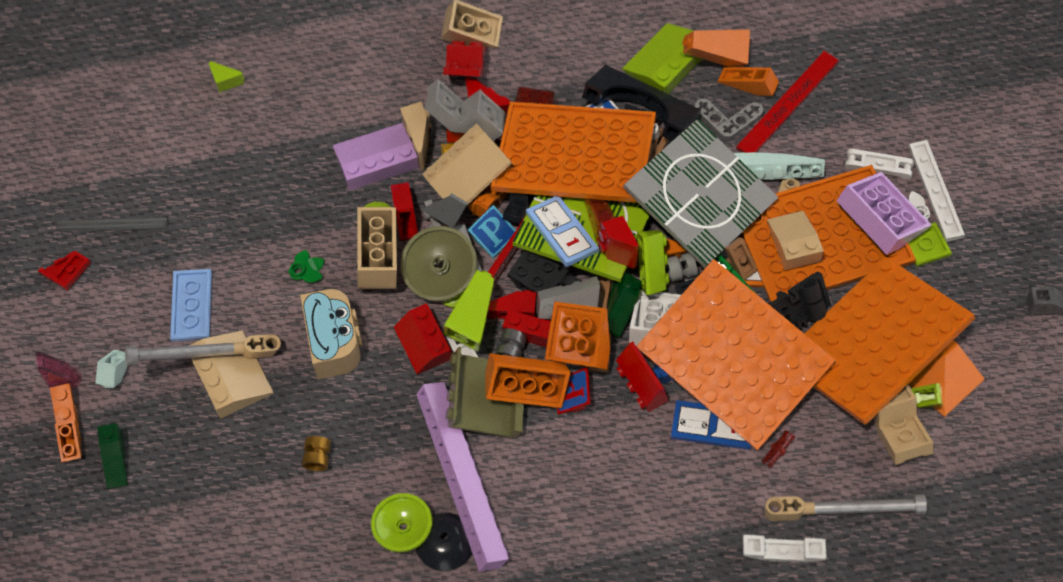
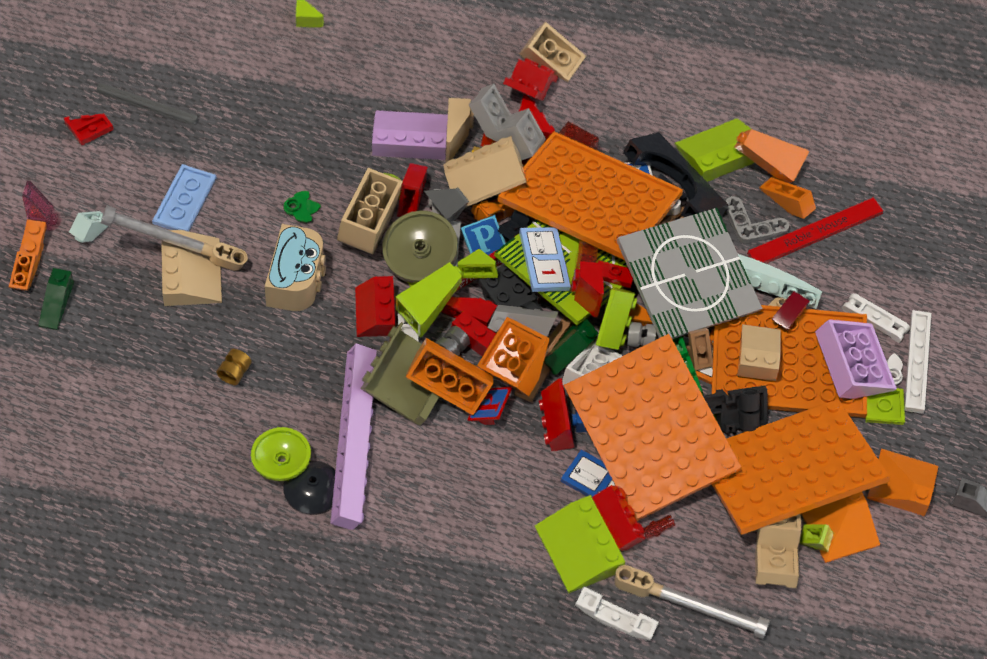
camera: 15 degrees right, 5 degrees down
(503, 261) = (478, 266): none -> lime slope
(635, 217) = (616, 274): none -> red plate
(719, 494) = (580, 544): none -> lime slope
(744, 453) = (619, 517): none -> red brick
(804, 189) = (790, 310): none -> dark red slope
(988, 305) = (909, 483): none -> orange slope

